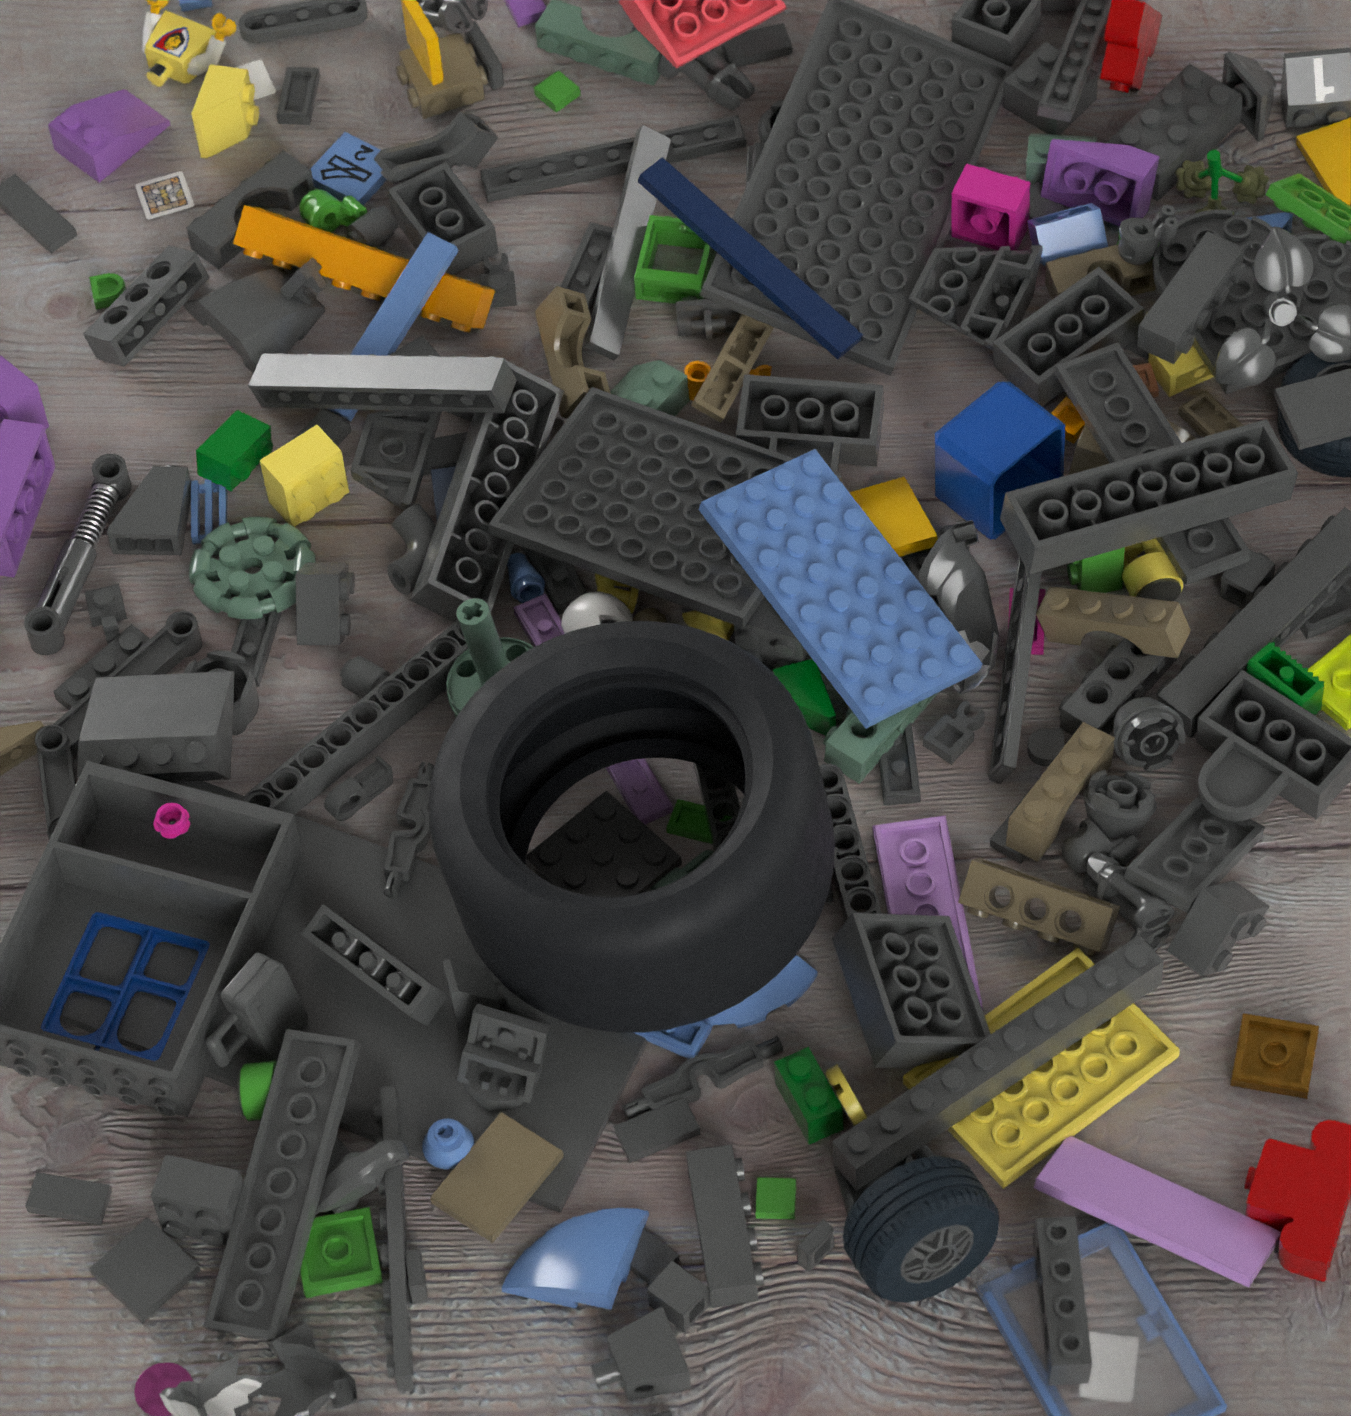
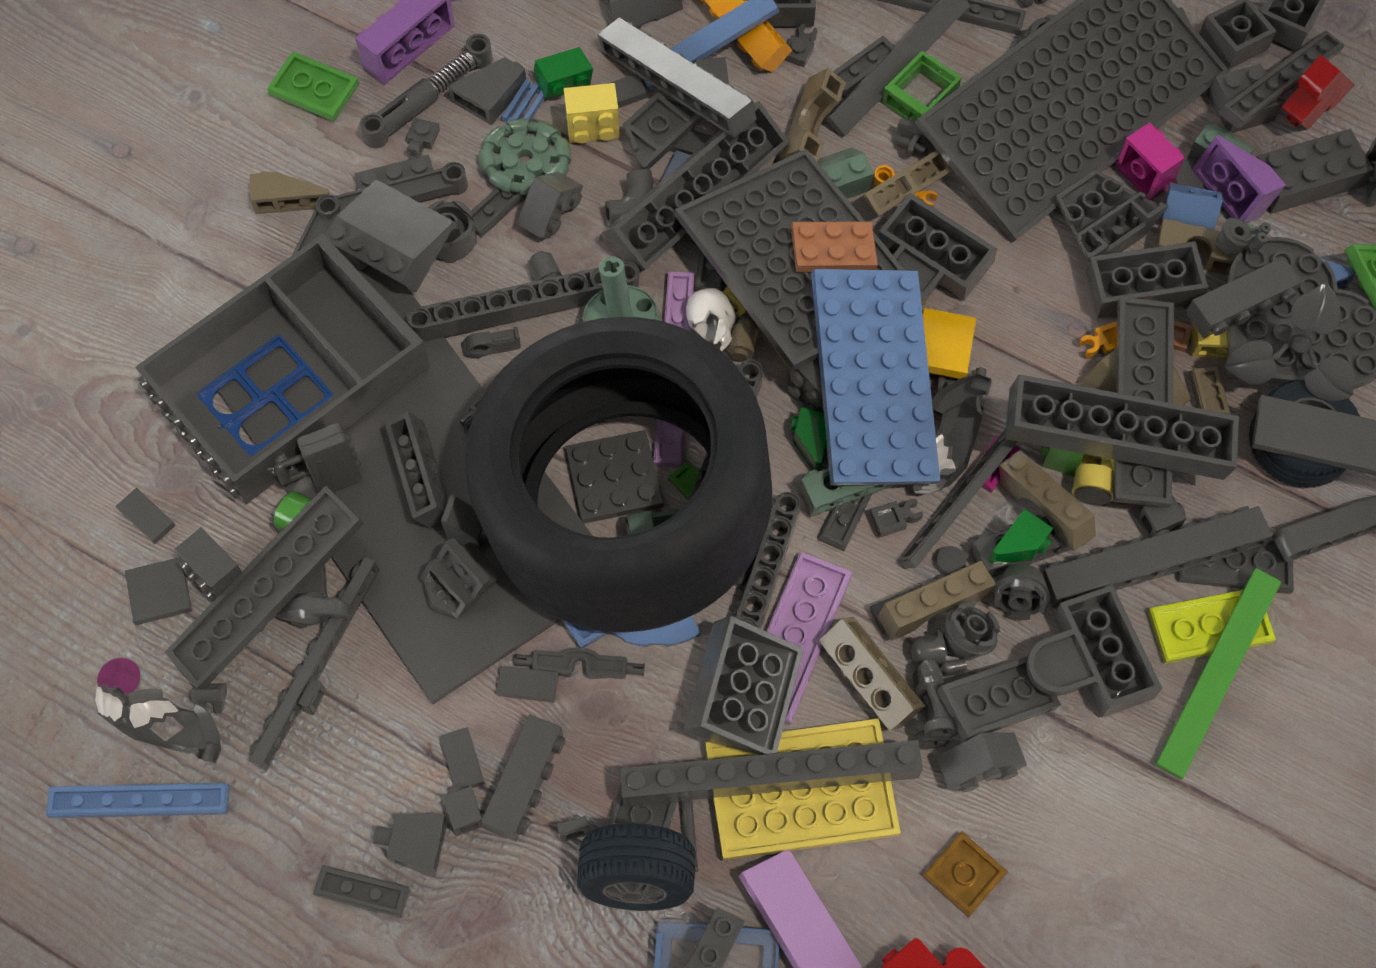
camera: 25 degrees right, 10 degrees up
(168, 813) = (340, 298): dark pink plate -> none
(341, 1254) = (277, 651): bright green plate -> none
(447, 1143) = (388, 618): medium blue cone -> none
(496, 1177) = (404, 658): dark tan tile -> none
(524, 579) = (686, 256): medium blue cone -> none
(579, 1259) = (421, 746): medium blue brick -> none
(698, 472) = (833, 246): none -> nougat plate
(750, 258) = (962, 114): dark blue tile -> none
(776, 1198) = (571, 777): bright green tile -> none
(808, 1095) = (635, 719): green brick -> none
(846, 1094) = (657, 743): light yellow tile -> none
(993, 449) = (1042, 338): blue plate -> none
(1116, 675) = (1022, 540): none -> green slope
(1197, 180) = (1311, 212): olive plant -> none
(1287, 677) = (1140, 607): green brick -> none

